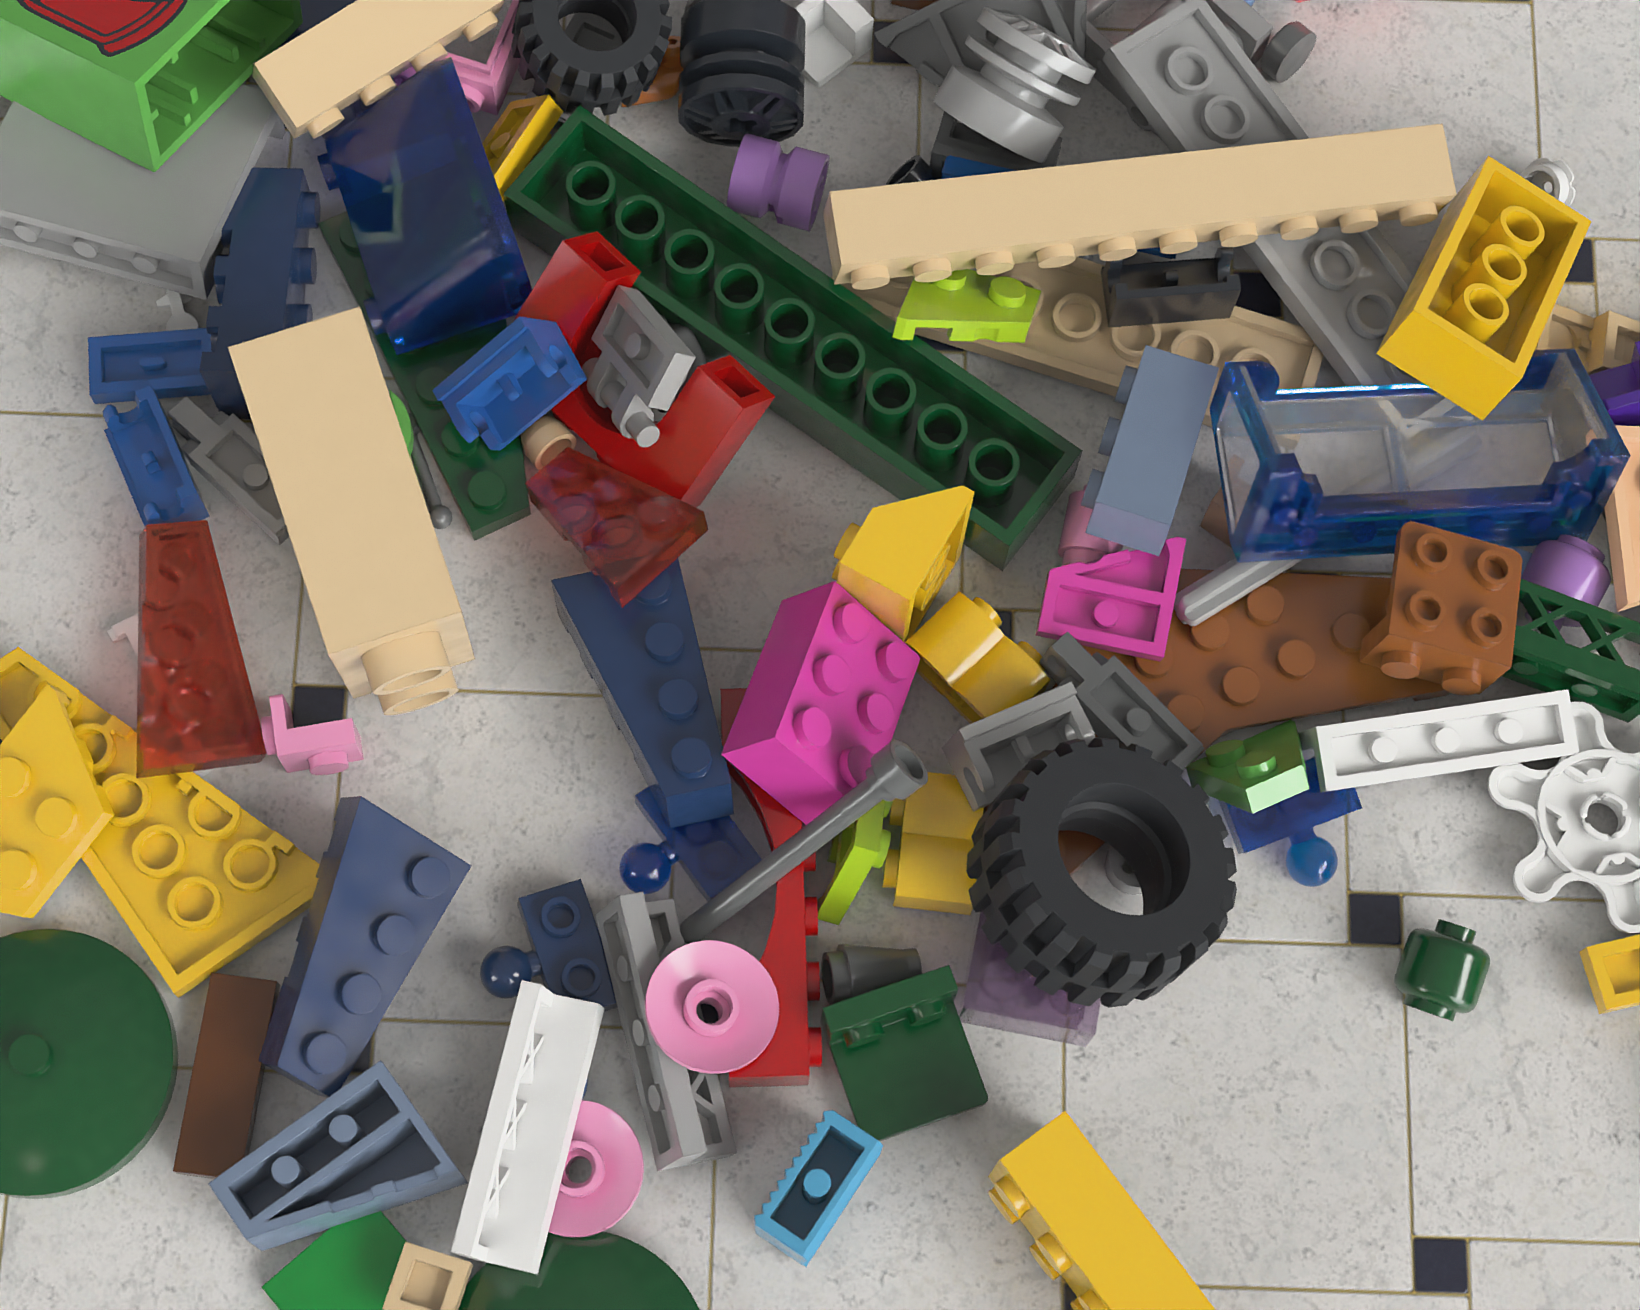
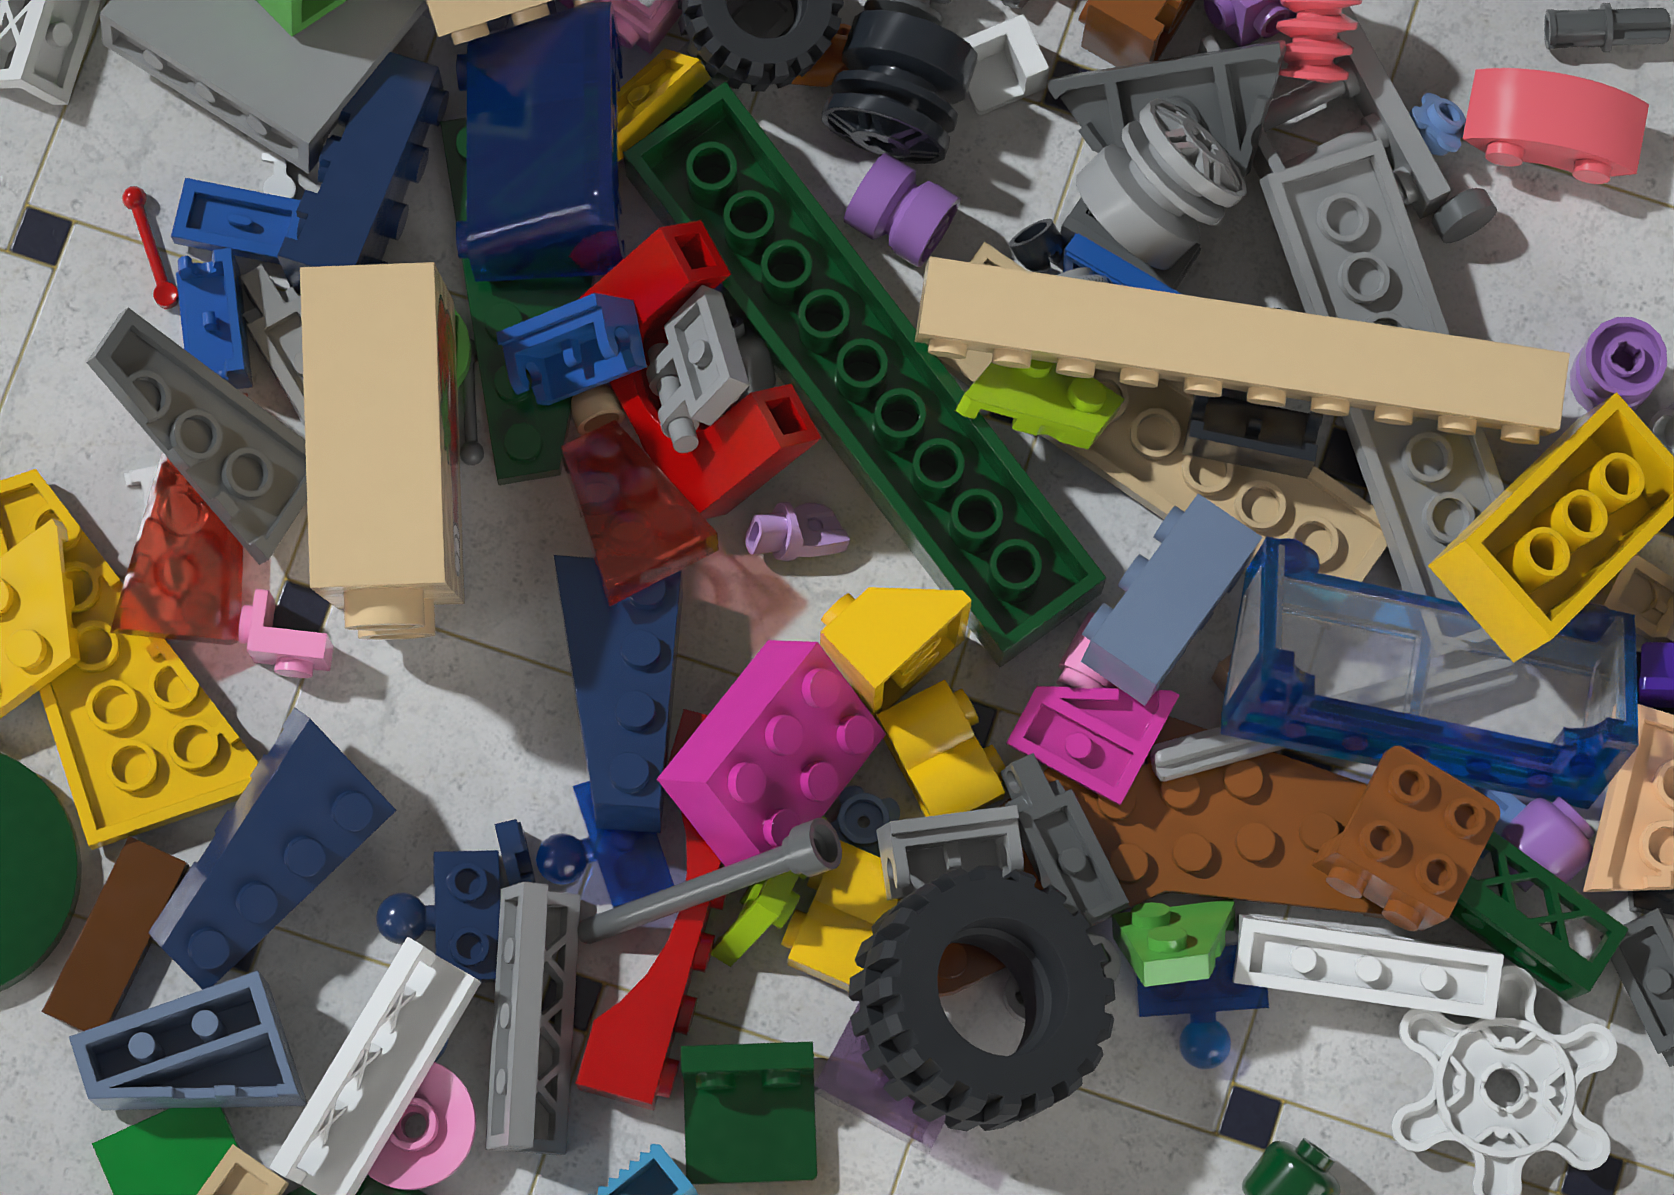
camera: 20 degrees right, 5 degrees up
(98, 451) = (165, 292): none -> red hinge
(190, 564) = (214, 435): none -> dark grey wing
(594, 872) = (514, 852): none -> dark blue tile
(729, 982) = (600, 990): bright pink dish -> none
(771, 500) = (796, 532): none -> lavender piece
(862, 969) = (741, 1020): dark grey cone -> none
(932, 735) = (858, 804): none -> medium blue plate
(1480, 126) = (1607, 368): none -> medium lavender wheel

